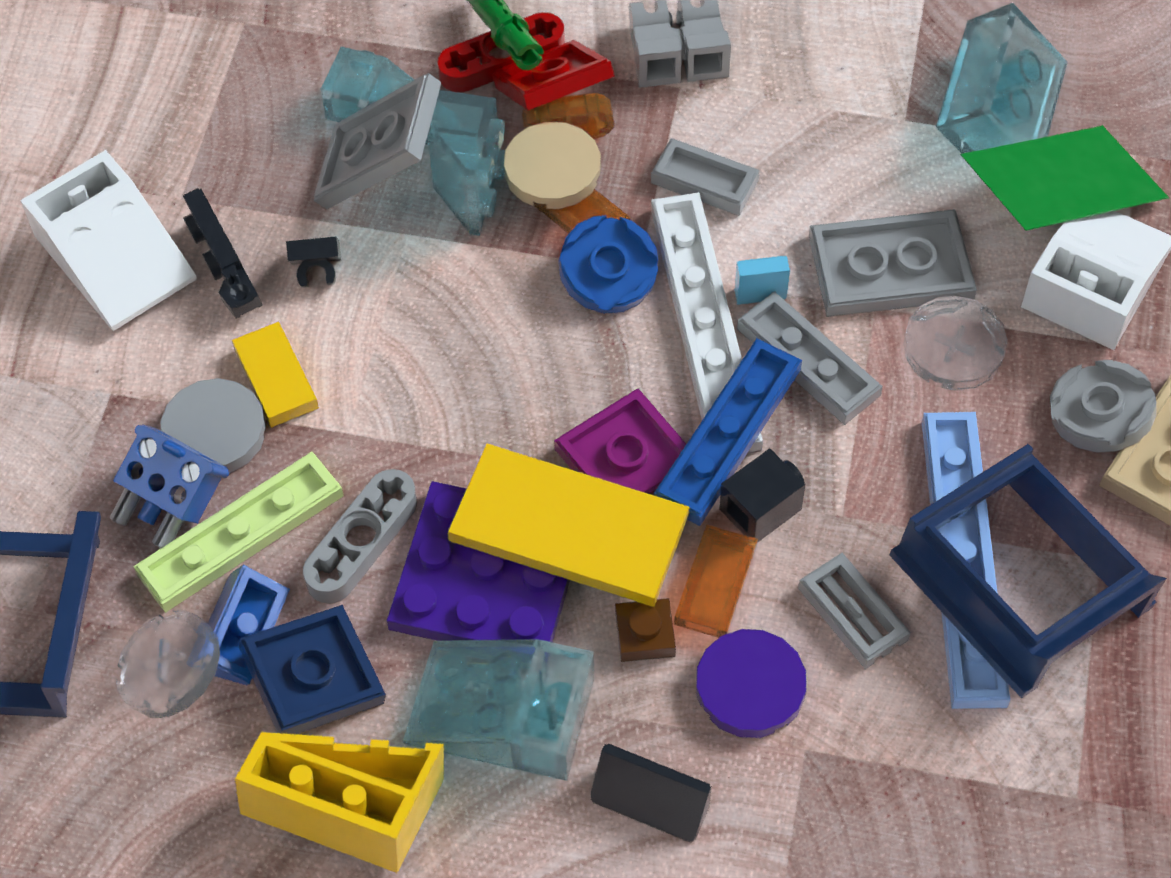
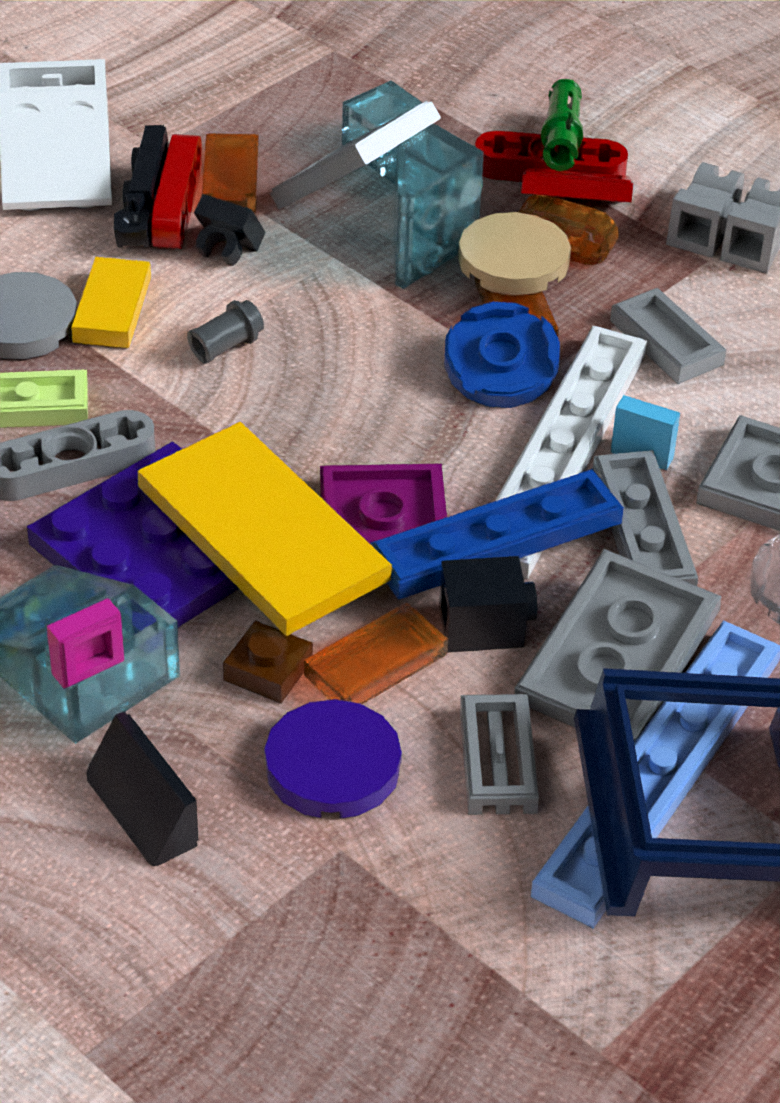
camera: 30 degrees right, 15 degrees down
(246, 240) = (176, 191): none -> red beam
(265, 195) = (232, 168): none -> clear orange tile
(393, 344) = (238, 324): none -> dark grey pin
(564, 717) = (85, 643): none -> dark pink tile
(870, 473) = (617, 620): none -> light grey tile

